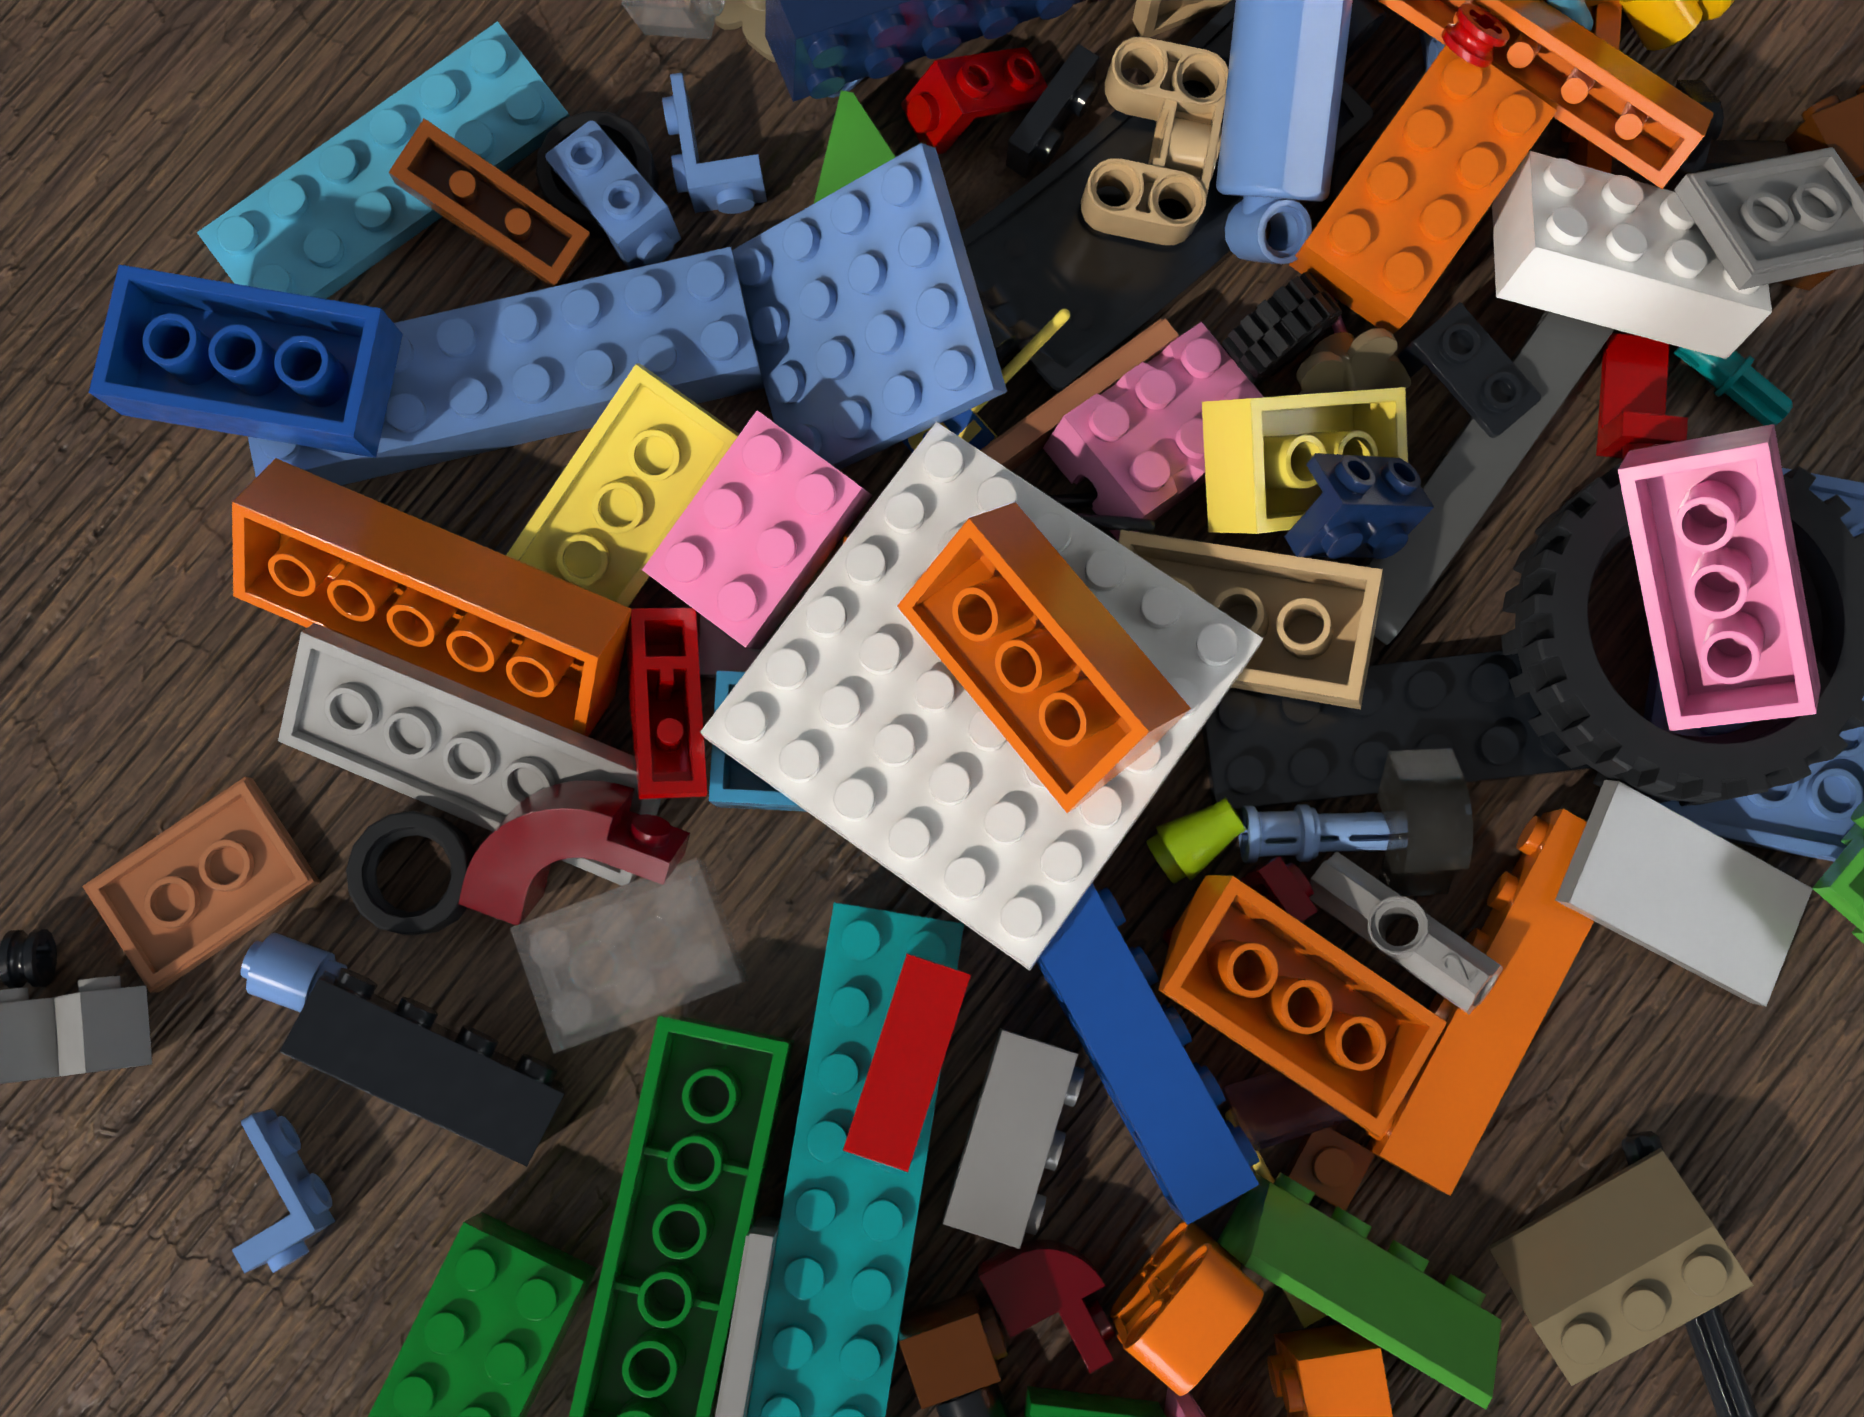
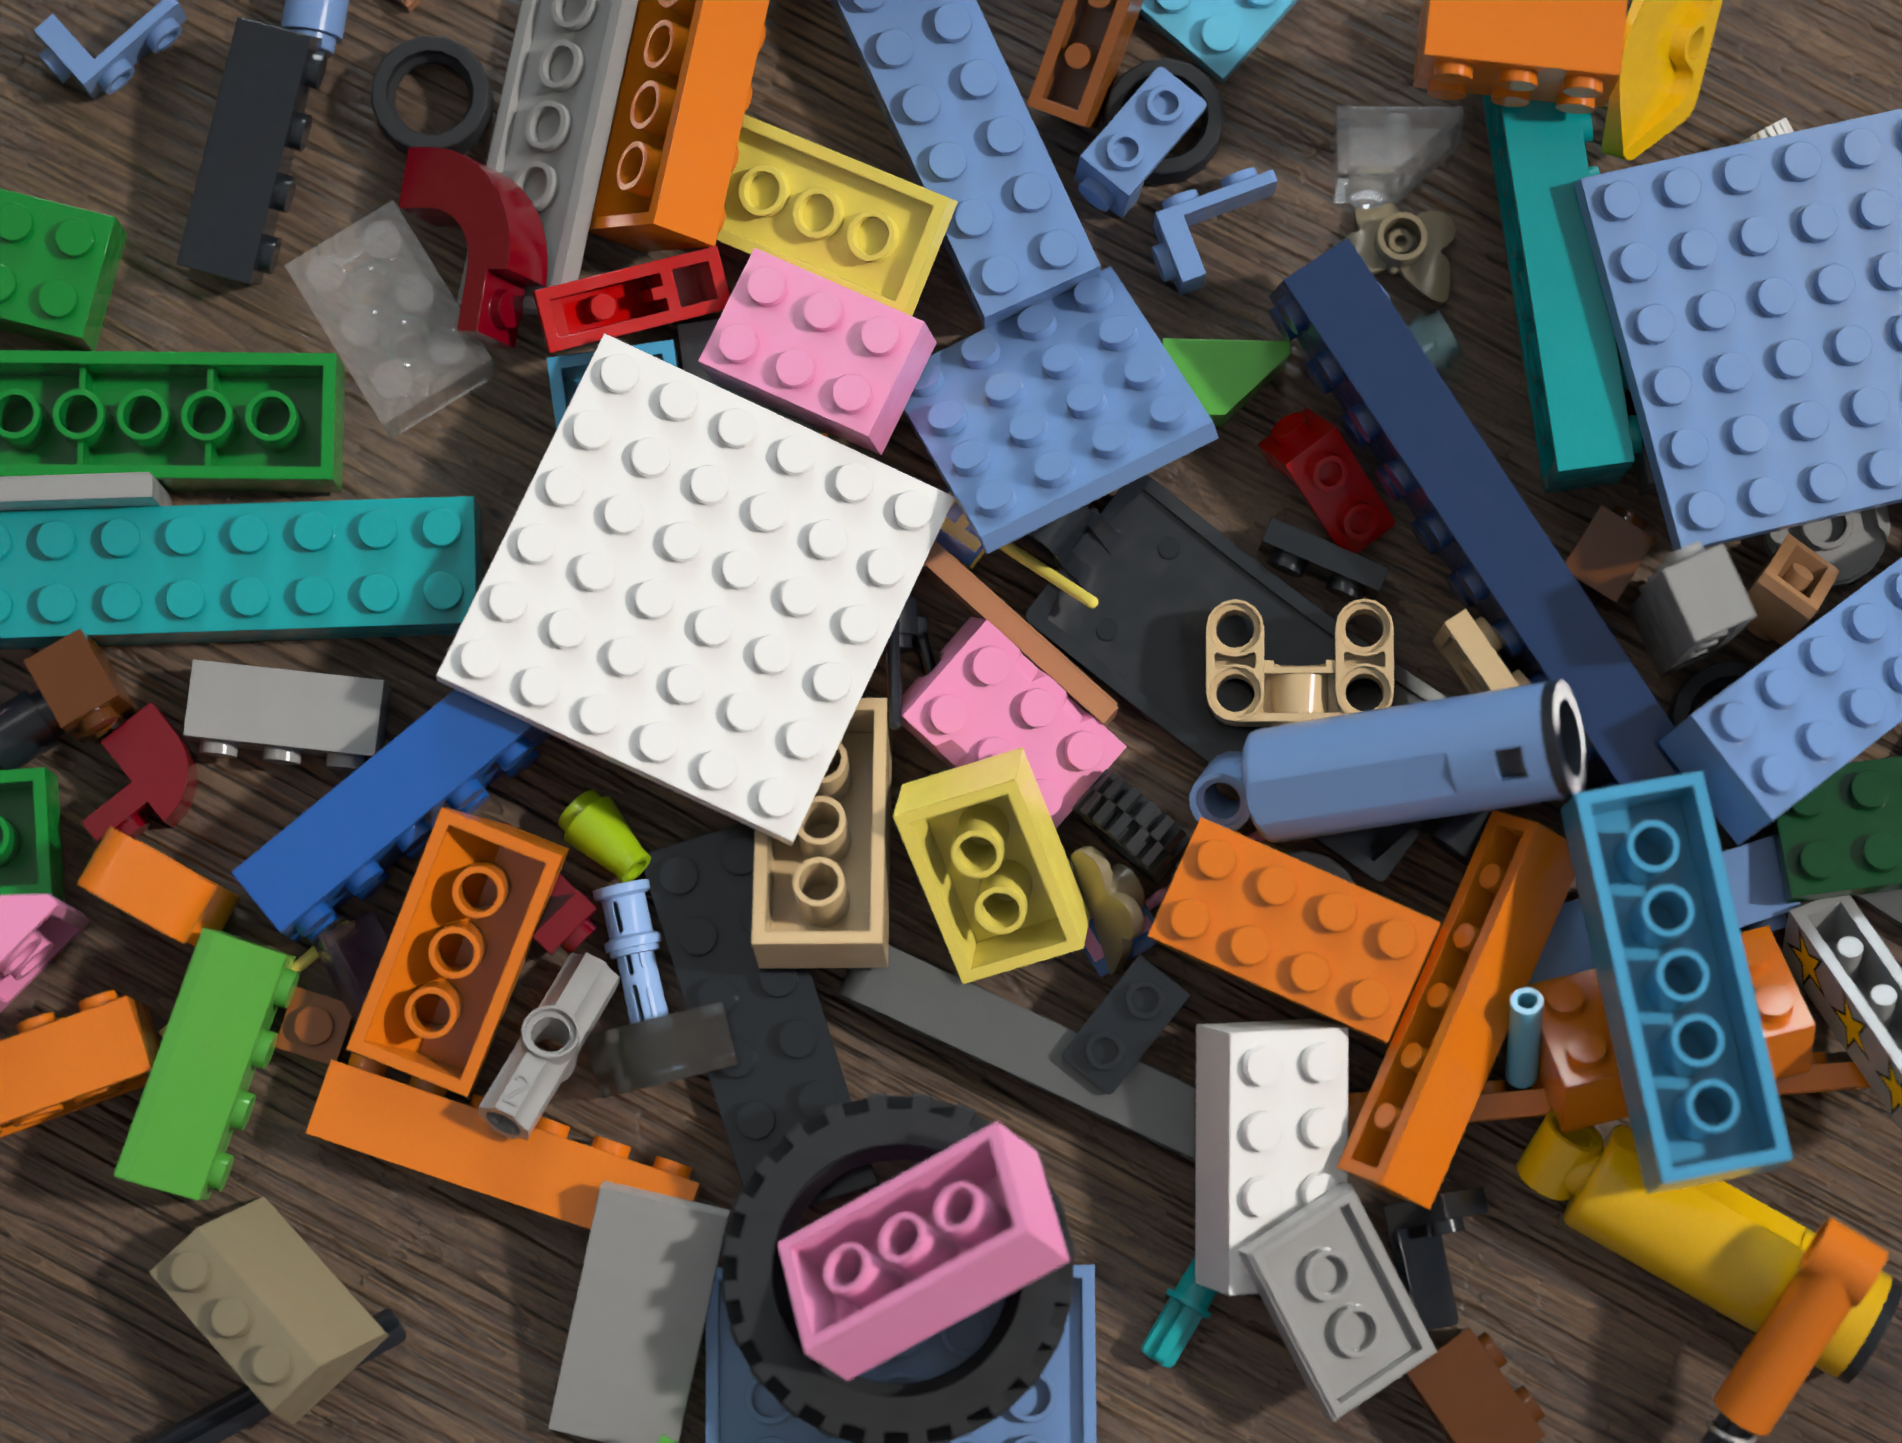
camera: 80 degrees right, 0 degrees up
(907, 1062) = (334, 590): red tile -> none
(1041, 655) = (729, 628): orange slope -> none
(1363, 508) = (947, 917): dark blue bracket -> none
(1475, 35) = (1423, 937): red bush -> none
(1635, 397) = (1134, 1204): red bracket -> none

